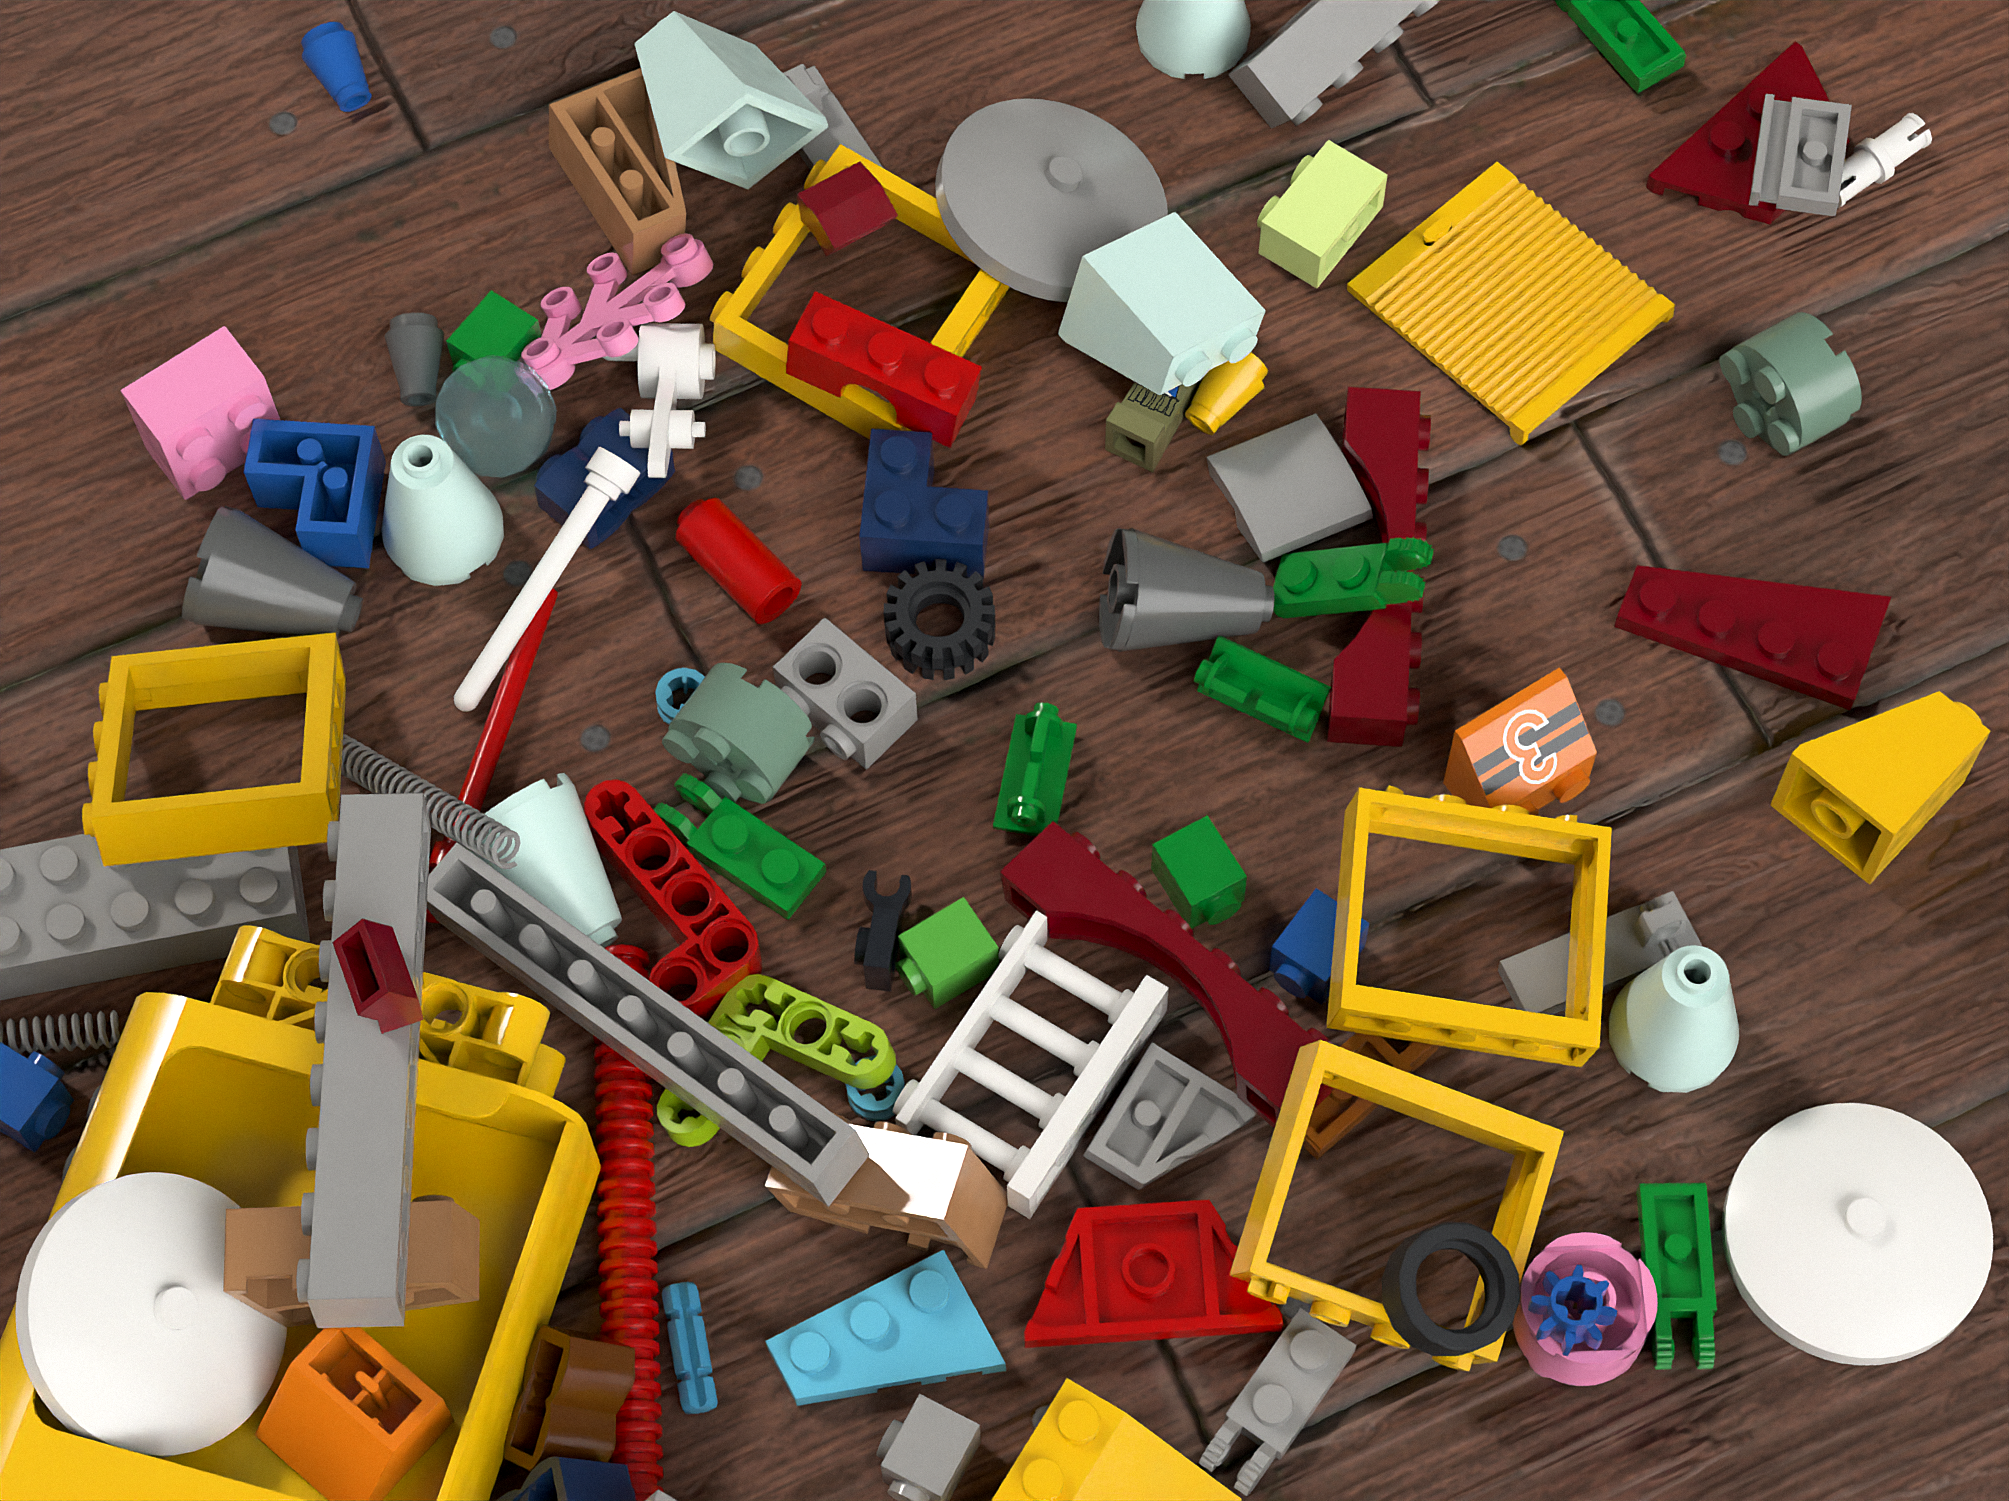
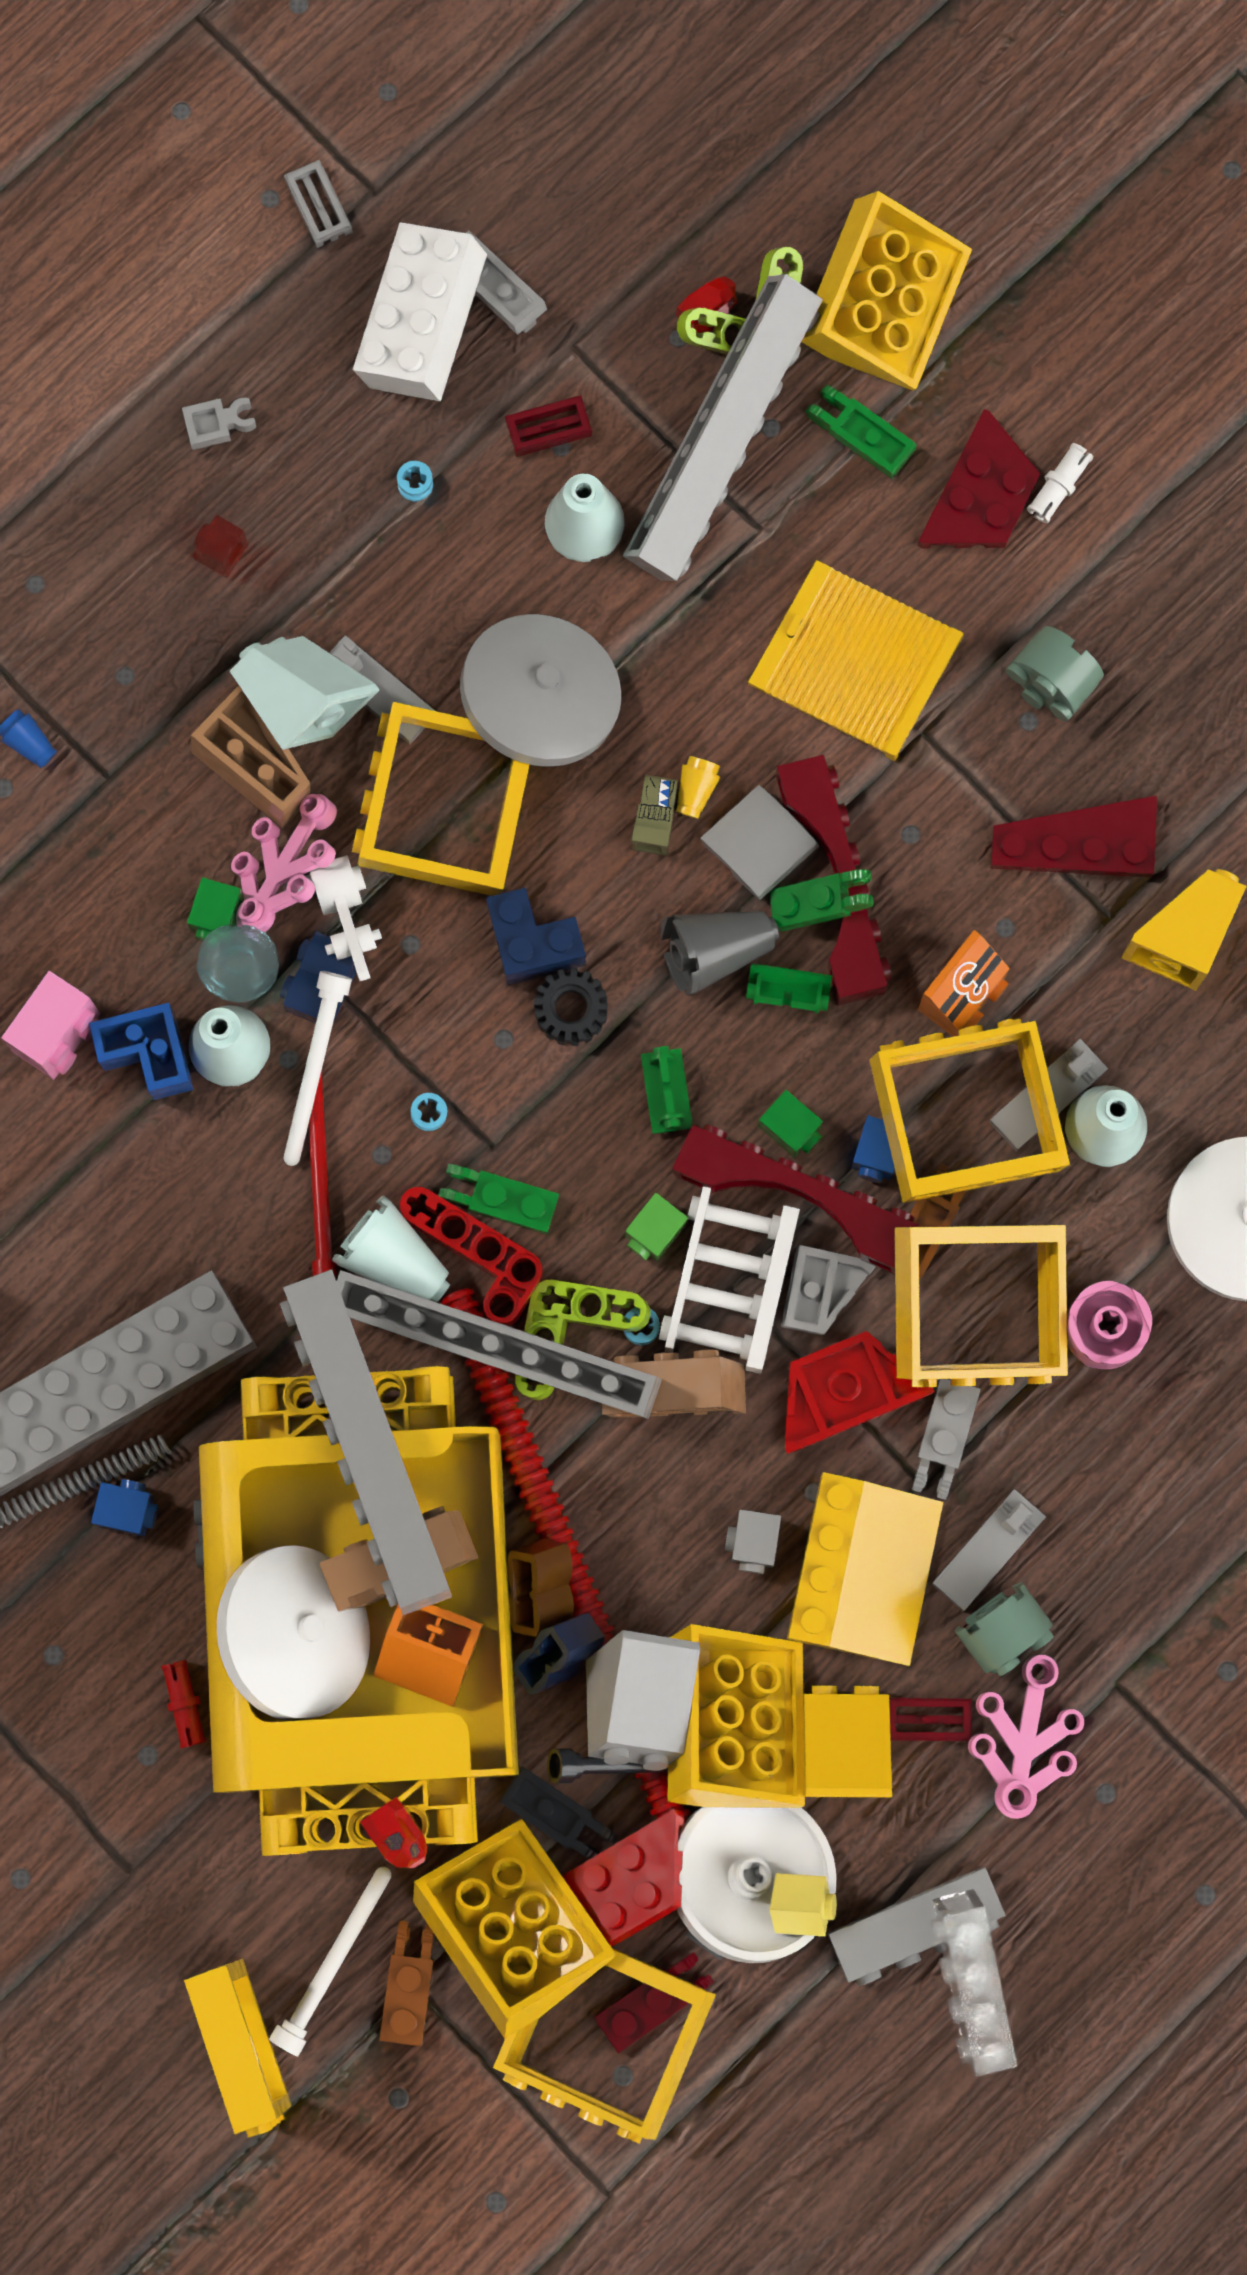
camera: 20 degrees left, 15 degrees up
(228, 818) = (184, 1308): yellow window -> none
(266, 583) = (139, 1127): dark grey cone -> none
(377, 945) = (367, 1395): dark red piece -> none
(415, 354) = (166, 934): dark grey cone -> none
(437, 823) = (284, 1247): light grey piece -> none
(689, 1348) = (589, 1522): dark azure axle -> none
(737, 559) = (428, 1008): red brick -> none
(739, 735) = (479, 1132): sand green brick -> none
(845, 208) = (417, 752): dark red piece -> none
(856, 686) = (535, 1069): light grey brick -> none
(879, 945) = (611, 1235): black plate -> none
(888, 1336) = (704, 1474): medium azure wing -> none
(922, 381) = (461, 854): red arch -> none
(1160, 307) = (644, 756): light aqua slope -> none
(1321, 213) = (718, 641): yellowish green brick -> none
(1494, 1267) = (1060, 1347): black tyre -> none
(1589, 1305) = (1111, 1327): blue gear -> none
(1680, 1259) = (1153, 1276): green hinge -> none
(1801, 155) = (1014, 502): light grey plate -> none

